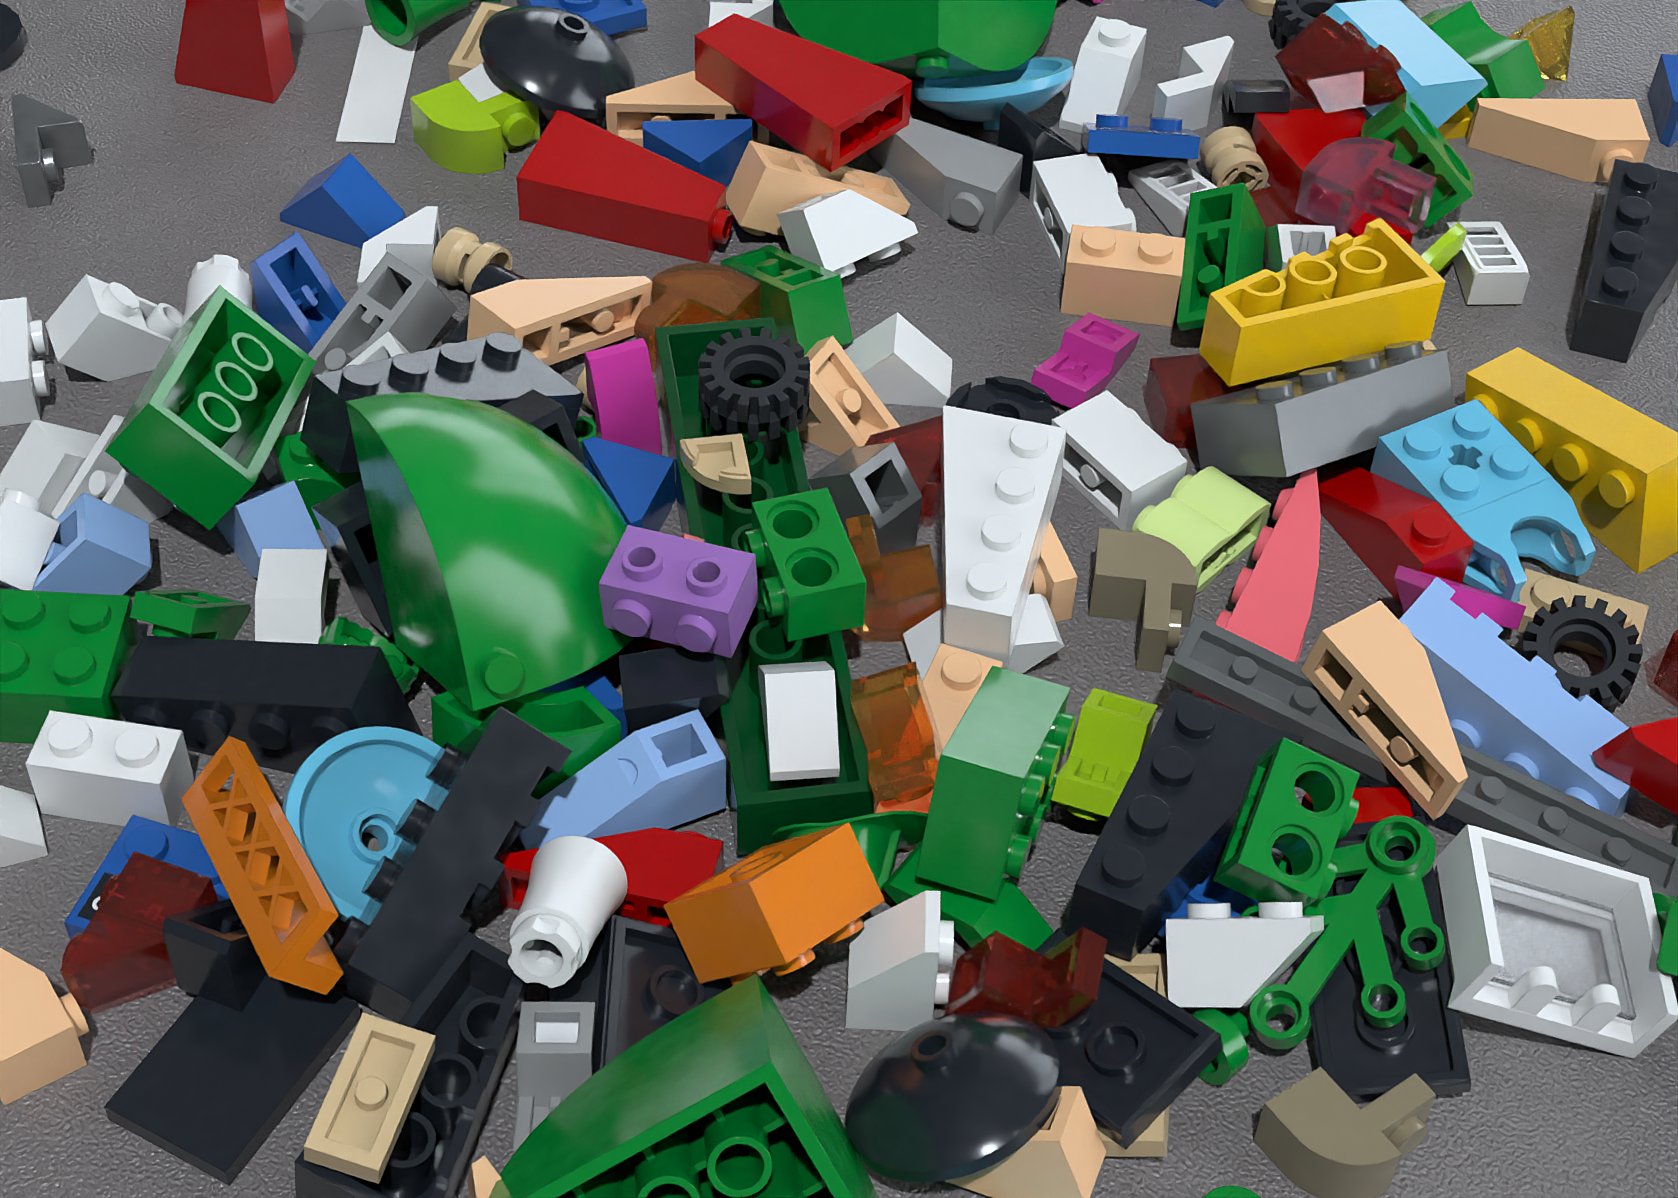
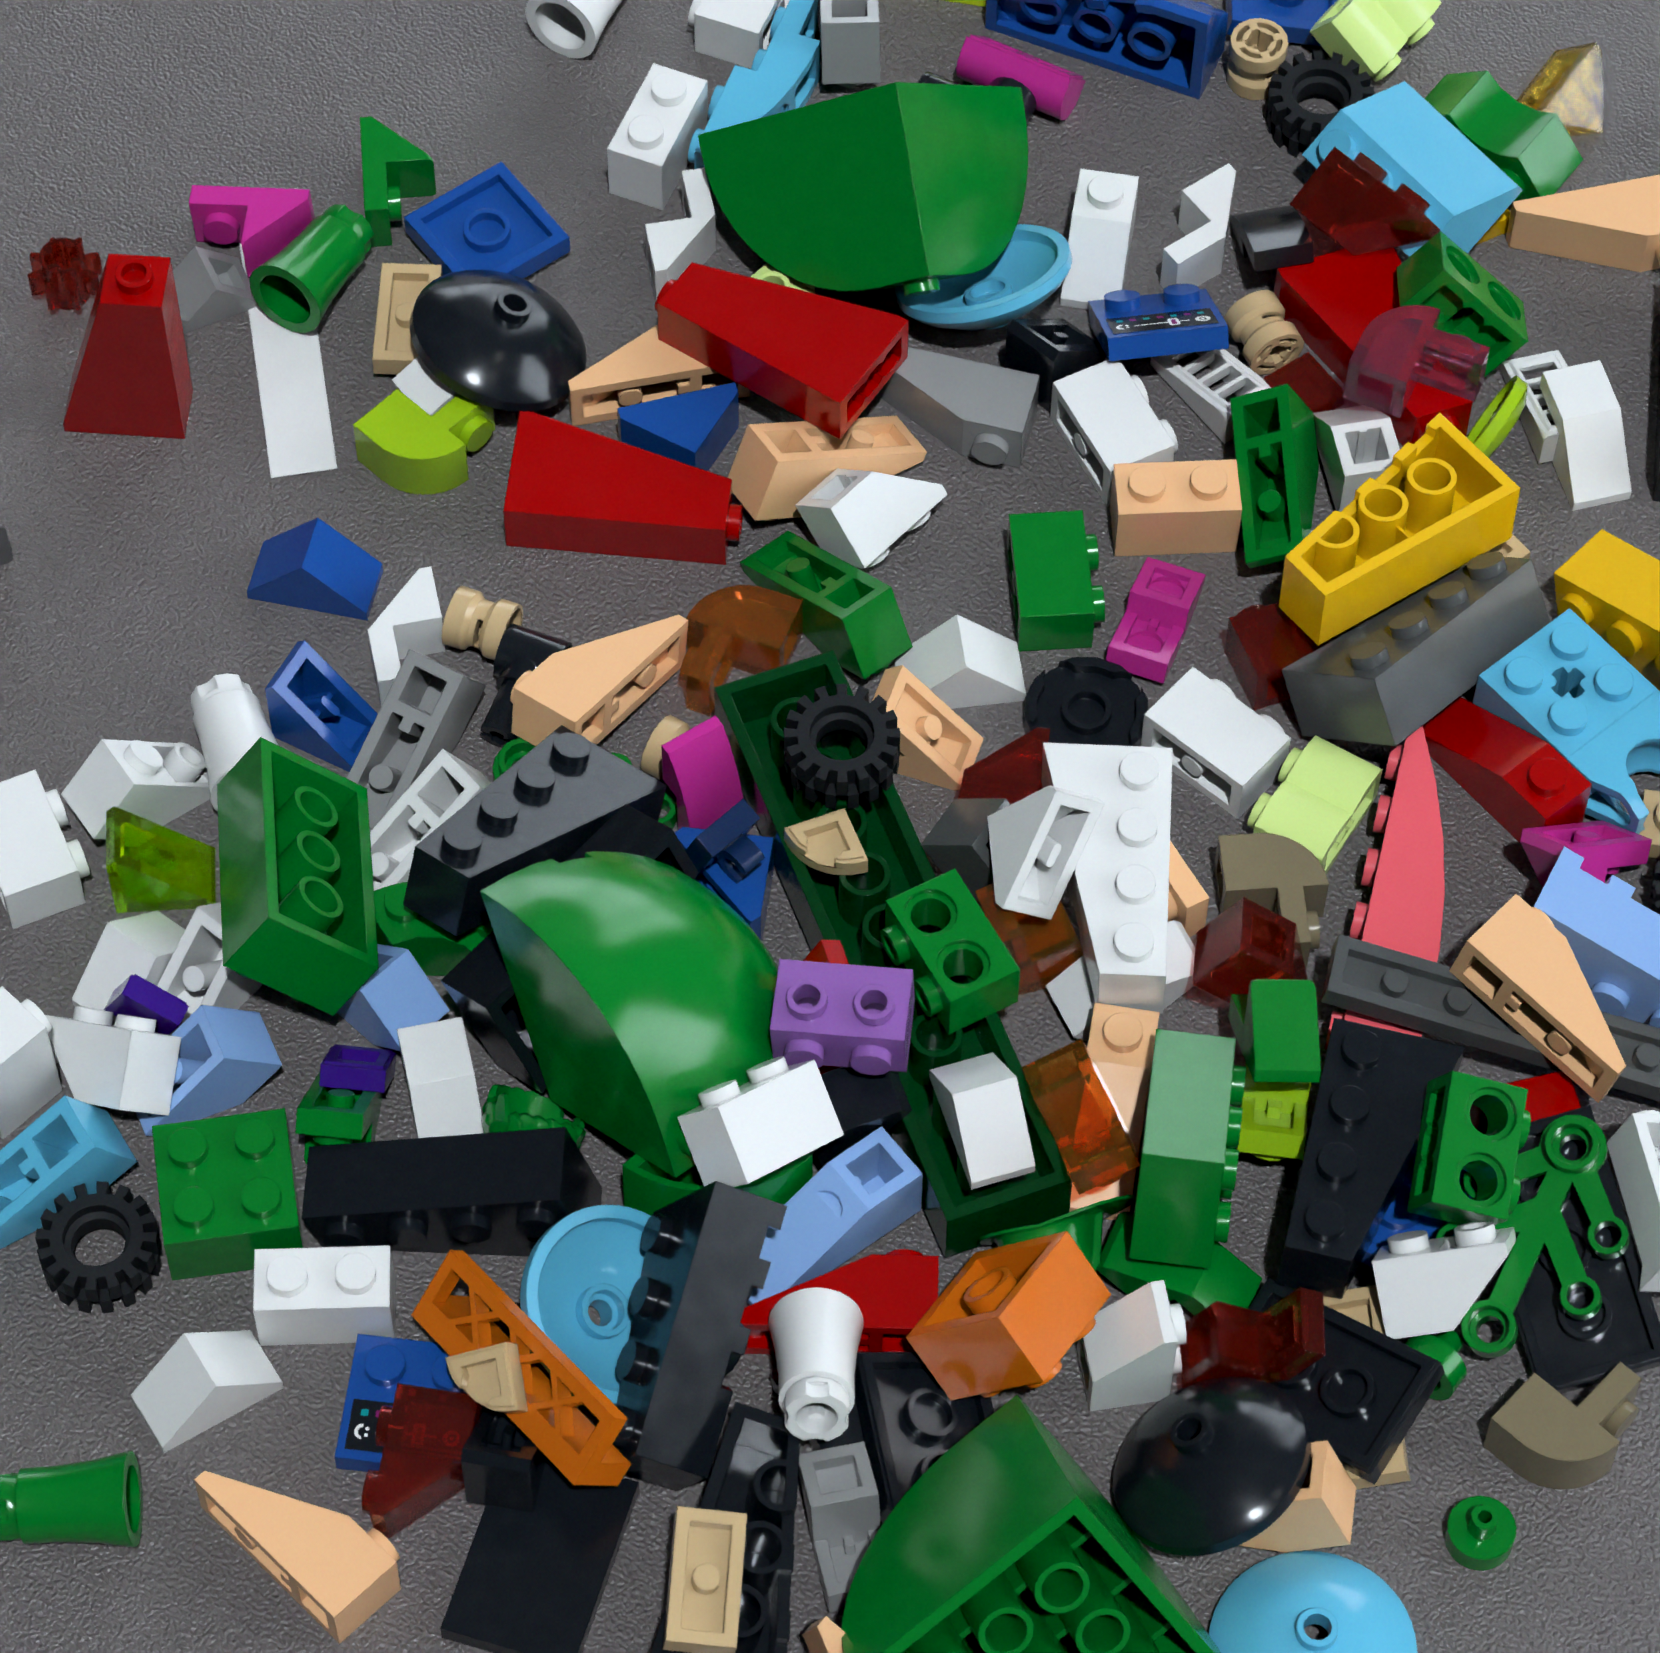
camera: 10 degrees left, 10 degrees up
(38, 482) = (147, 1000): none -> dark purple tile
(91, 383) = (156, 866): none -> clear neon green slope
(219, 585) = (357, 1068): none -> dark purple tile
(224, 857) = (491, 1377): none -> tan tile
(566, 668) = (760, 1124): none -> white brick
(623, 445) = (728, 843): none -> dark blue tile
(915, 483) = (1038, 847): none -> white slope
(995, 313) = (1052, 580): none -> green brick
(1108, 636) = (1246, 946): none -> clear red slope
(1116, 683) = (1278, 1030): none -> green slope
(1519, 281) = (1591, 435): none -> white slope

